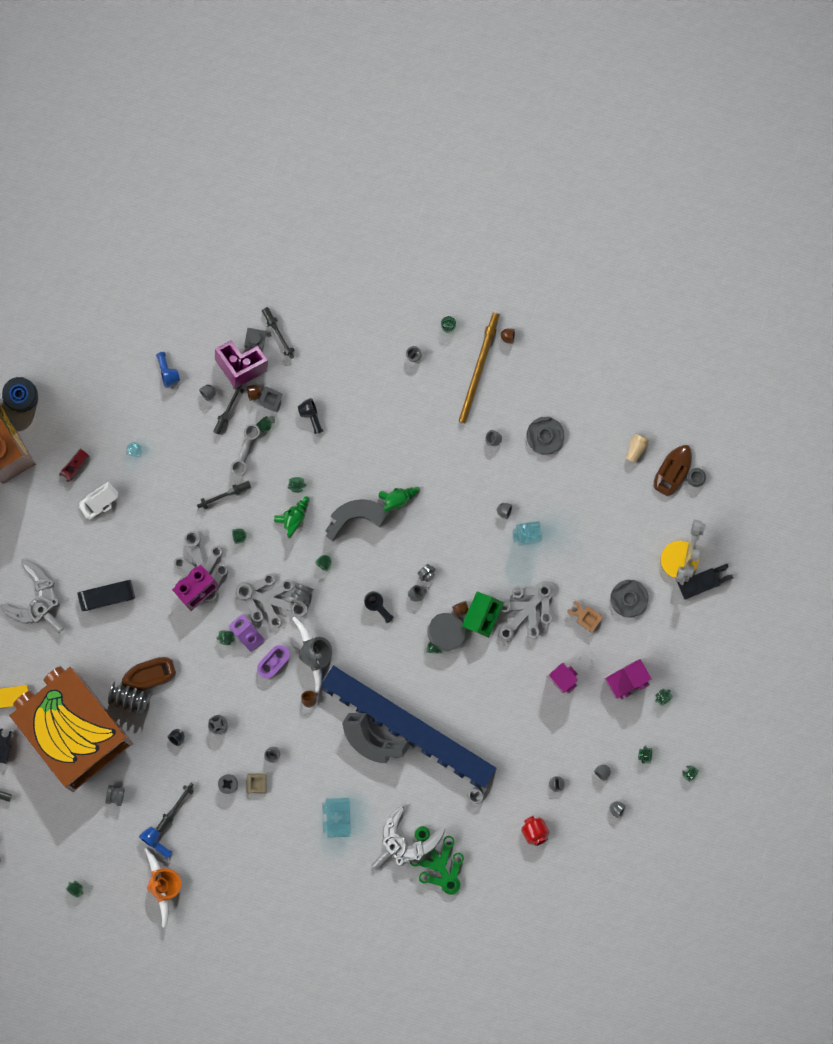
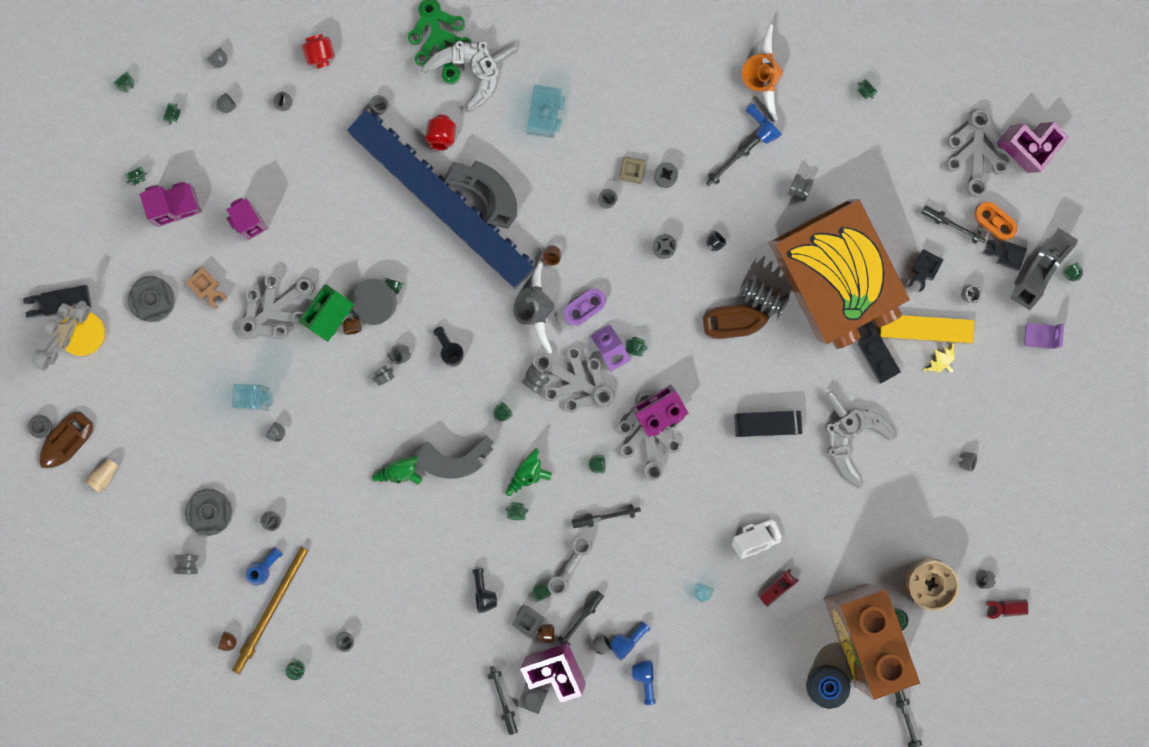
camera: 170 degrees left, 0 degrees up
(26, 669) = (877, 355): none -> black hinge
(190, 395) = (623, 645): none -> blue bar
(420, 782) = (440, 132): none -> red head
(492, 399) = (262, 568): none -> blue bar
(553, 390) = (186, 564): none -> dark grey wheel

